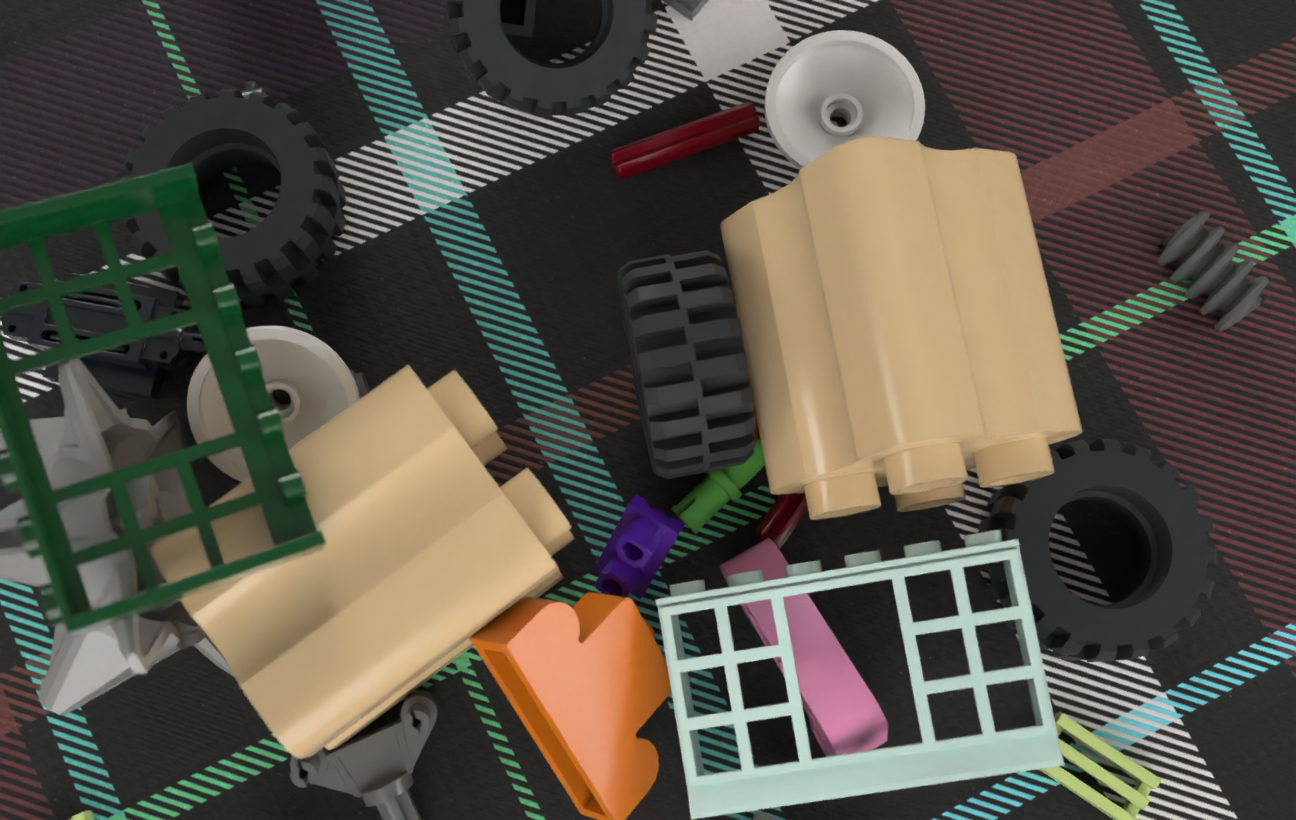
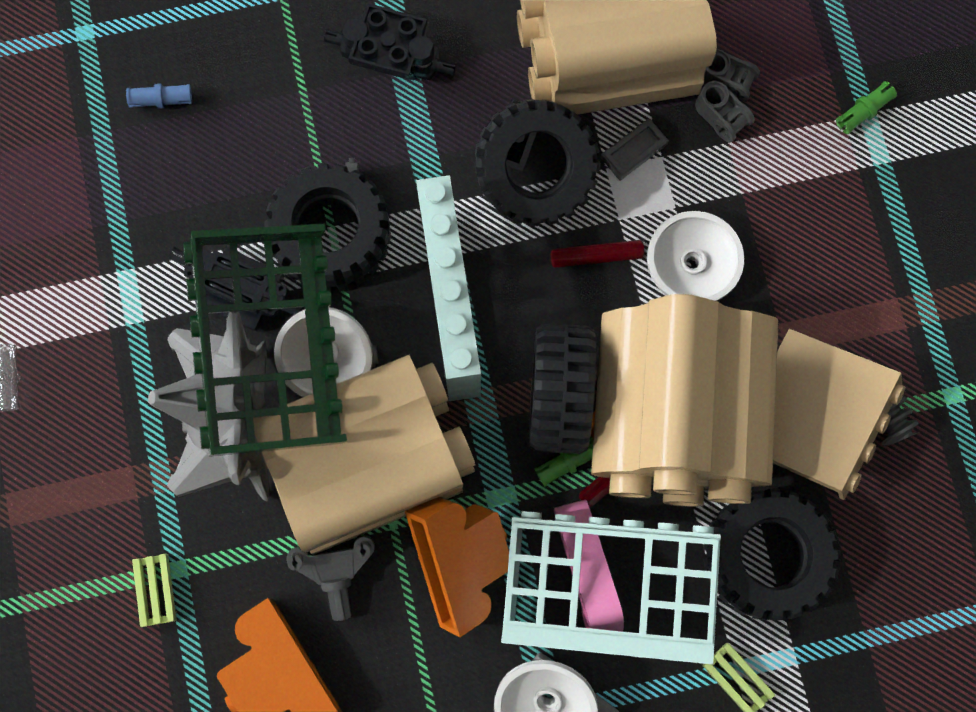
camera: 15 degrees right, 0 degrees up
(454, 240) = (449, 288): none -> light aqua window
(636, 550) = (507, 487): dark purple hips -> none
(1135, 292) = (829, 410): none -> tan panel

